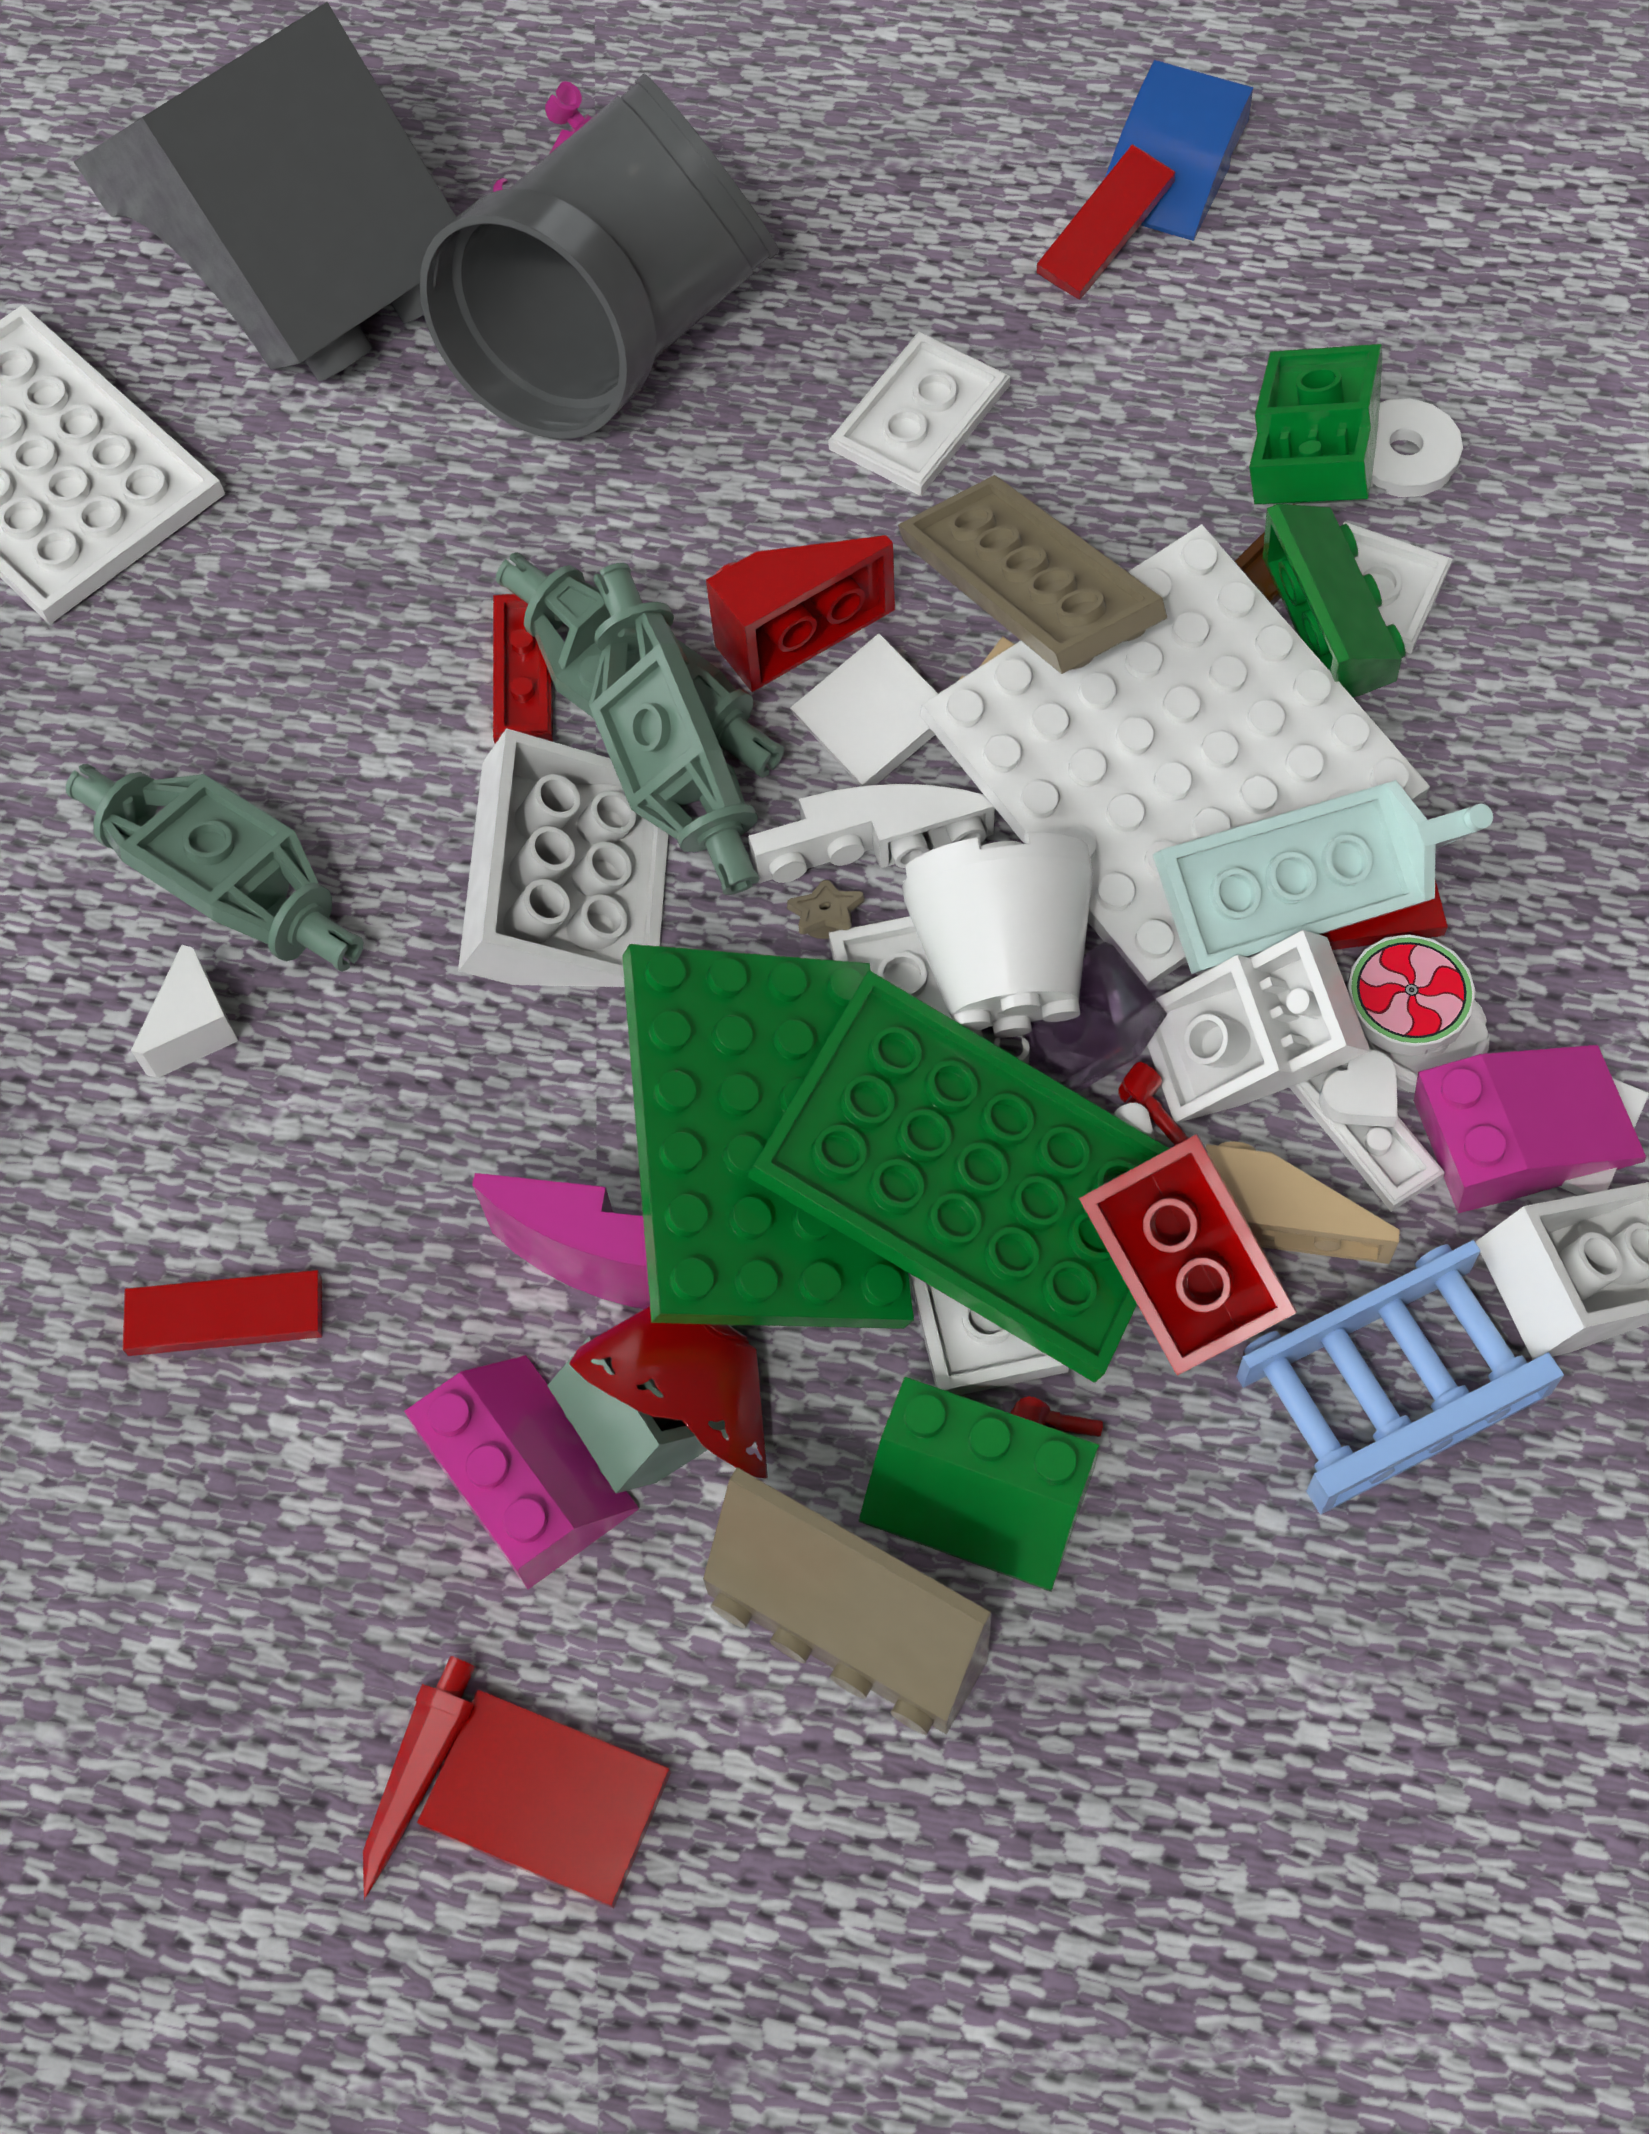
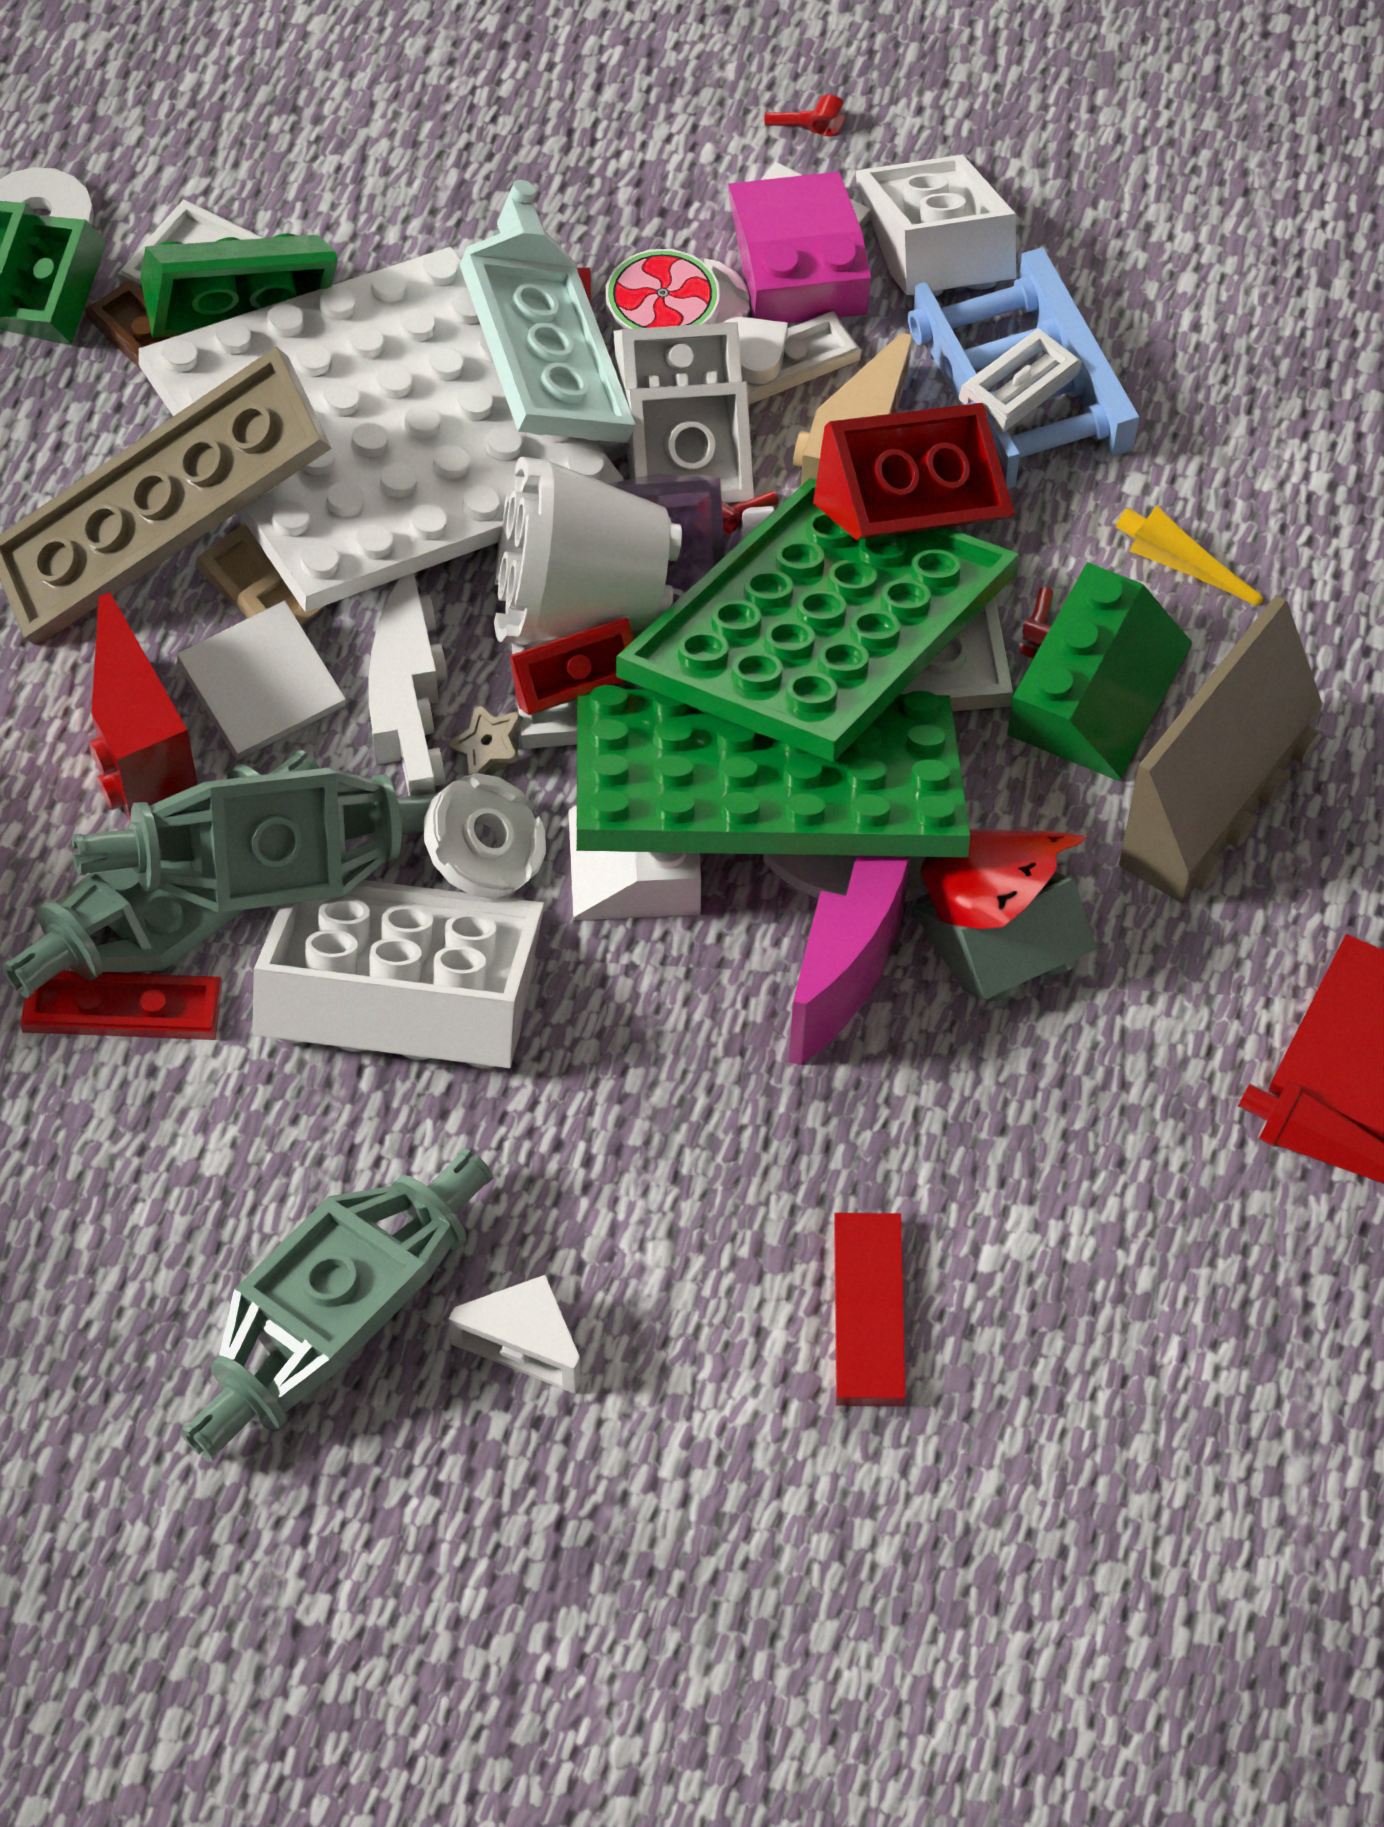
camera: 90 degrees left, 5 degrees down
(519, 1465) = (1062, 1039): dark pink slope -> none
(708, 877) = (460, 854): none -> white tile
(881, 945) = (569, 666): none -> red slope
(1182, 1547) = (1168, 544): none -> yellow piece
(1339, 1381) = (1032, 397): none -> white tile

